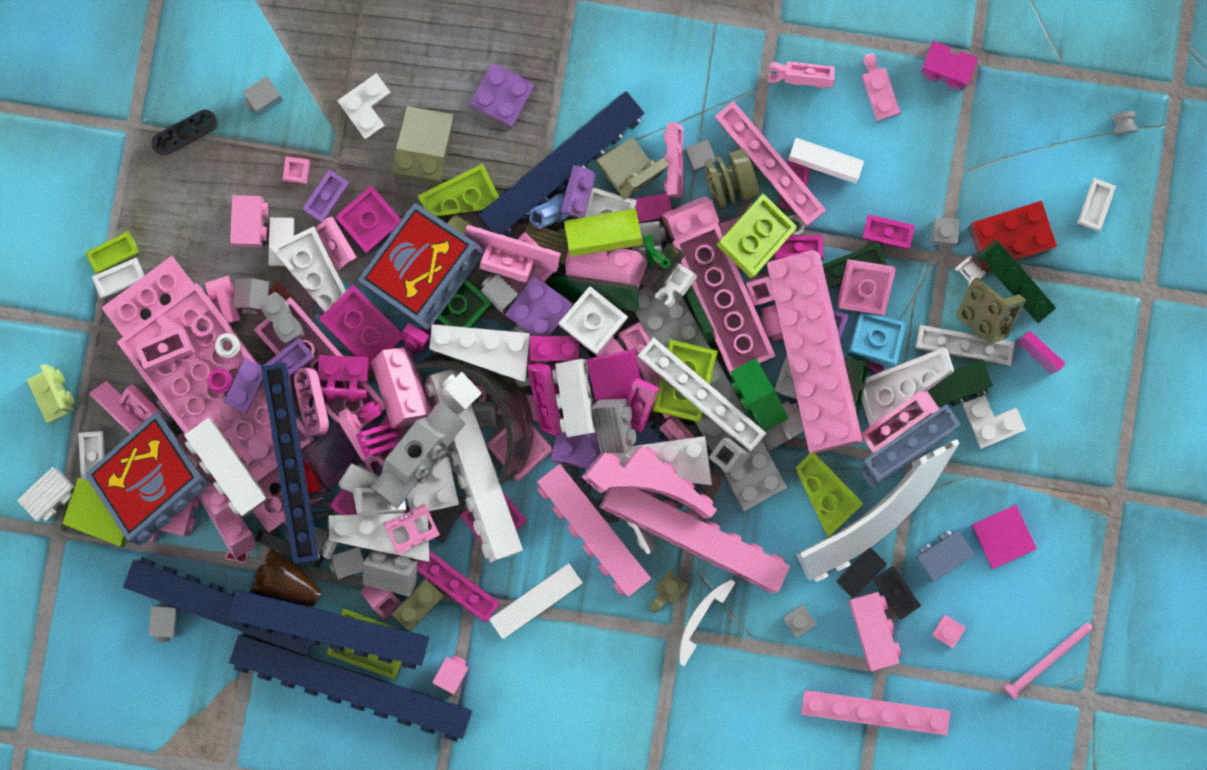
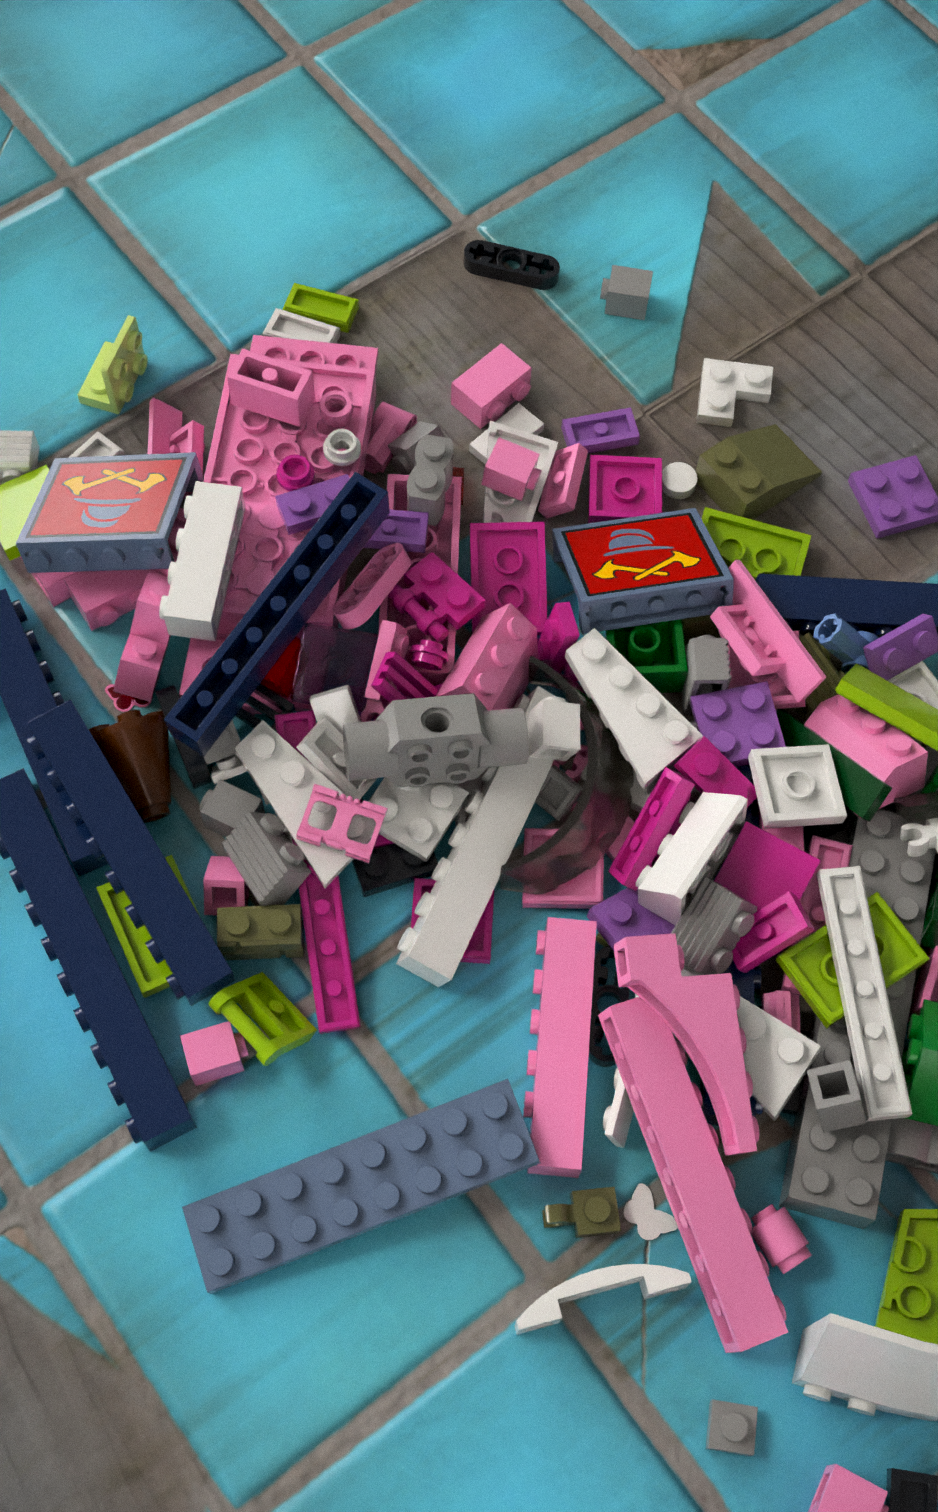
camera: 40 degrees right, 20 degrees down
(296, 170) = (592, 387): bright pink tile -> none
(310, 268) = (511, 469): none -> bright pink brick
(388, 187) = (678, 480): none -> white tile
(457, 634) = (270, 1010): none -> lime plate
(535, 601) = (404, 1065): white tile -> none
(567, 669) = (359, 1186): none -> sand blue plate
(689, 568) = (648, 1220): none -> white sticker
(755, 527) = (780, 1238): none -> bright pink brick
(861, 572) = (879, 1443): black tile -> none

